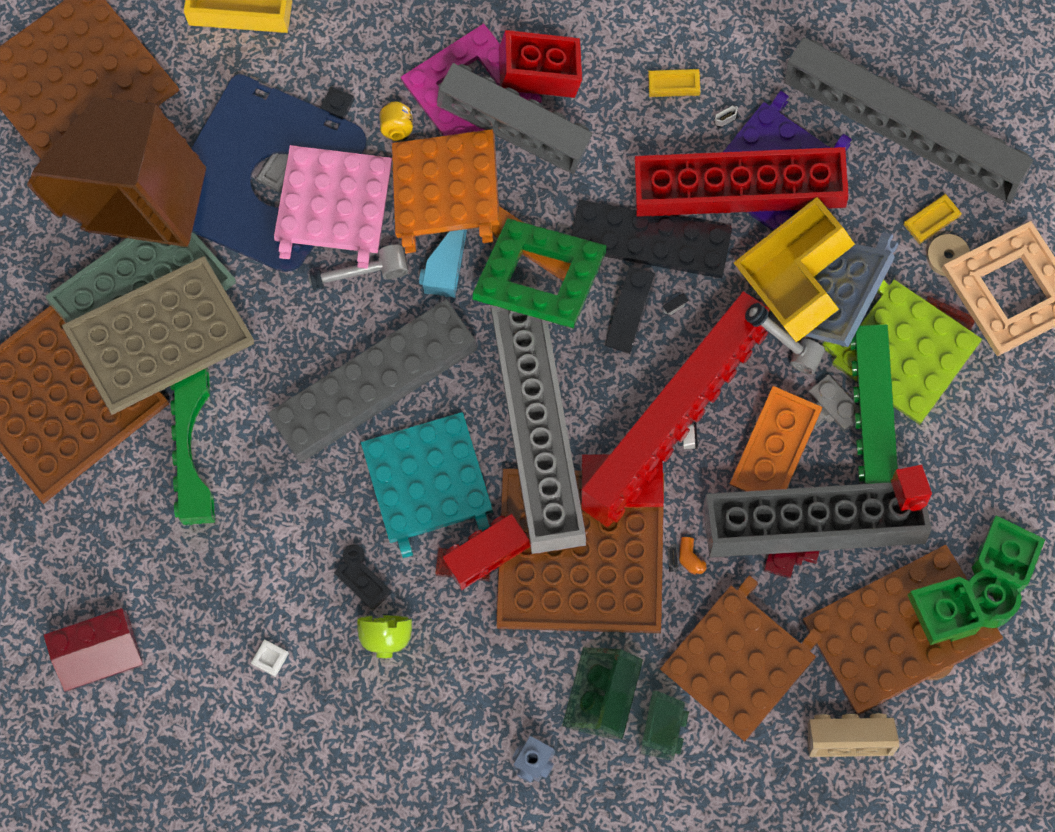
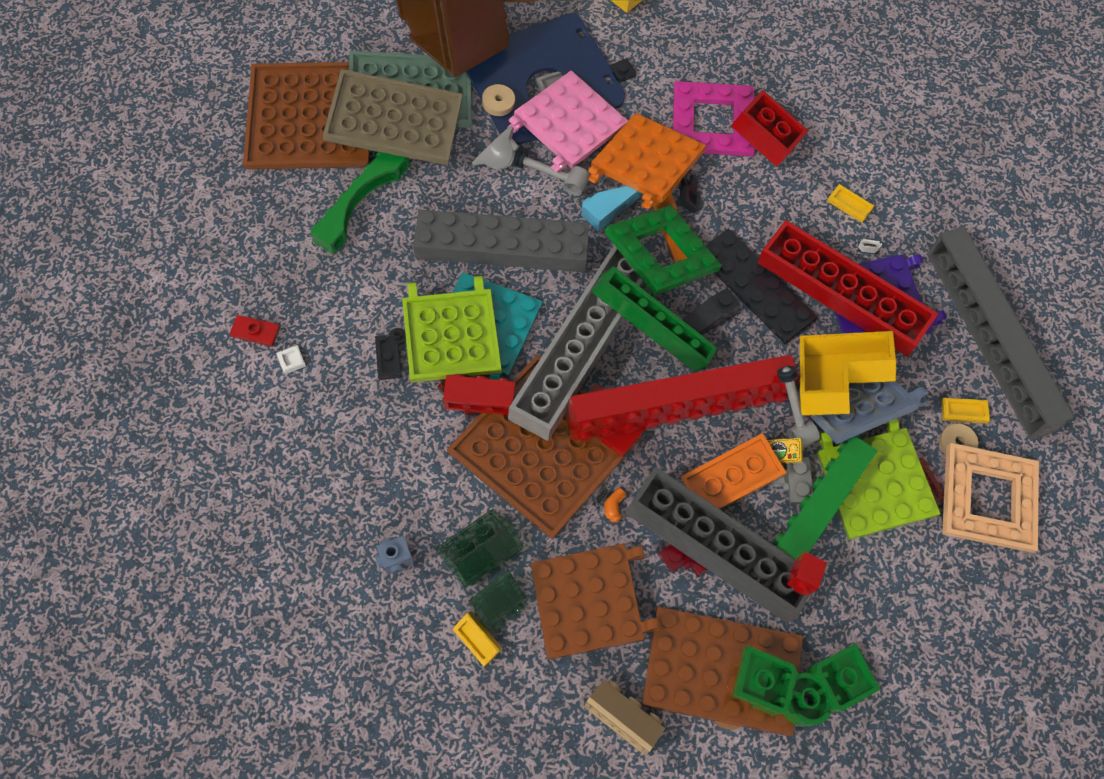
camera: 30 degrees right, 5 degrees down
(93, 649) = (192, 271): slope -> none
(208, 658) = (254, 330): none -> red plate
(244, 245) = (495, 107): none -> tan piece
(294, 290) = (500, 152): none -> light grey hat
(384, 634) = (371, 398): lime cylinder -> none
(396, 121) = (649, 102): yellow head -> none
(408, 513) = (450, 333): none -> lime plate
(514, 118) = (725, 146): dark grey brick -> none
(515, 193) = (689, 197): none -> black plate
(591, 353) = (654, 319): none -> green brick
(669, 773) = (477, 638): none -> yellow tile
(675, 304) = (738, 336): black piece -> none
(691, 440) = (678, 428): white piece -> none
(806, 383) = (788, 450): none -> tile

